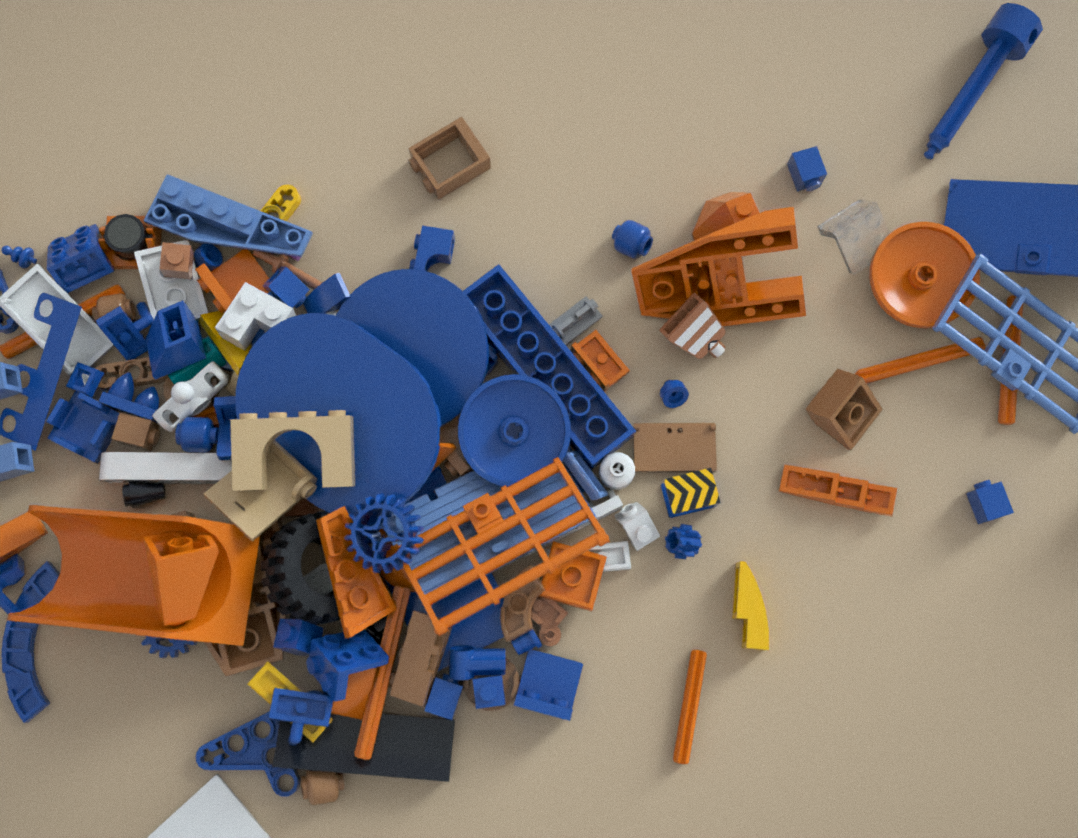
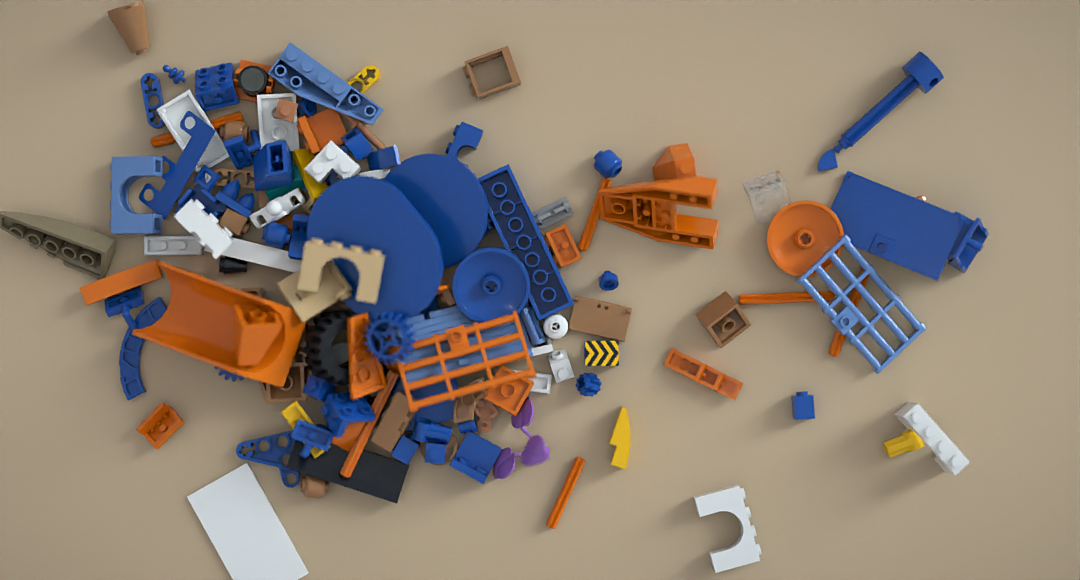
camera: 15 degrees right, 10 degrees up
(55, 485) = (172, 245): none -> white tile
(76, 748) = (160, 425): none -> orange bracket
(88, 443) = (204, 227): none -> white wedge
(630, 318) = (593, 218): none -> orange axle
(634, 656) = (534, 452): none -> medium lavender plant
(695, 329) = (633, 241): nougat torso -> none
(807, 169) = (746, 141): blue brick -> none
(920, 173) = (827, 161): none -> blue tile
(969, 726) = (744, 549): none -> white arch

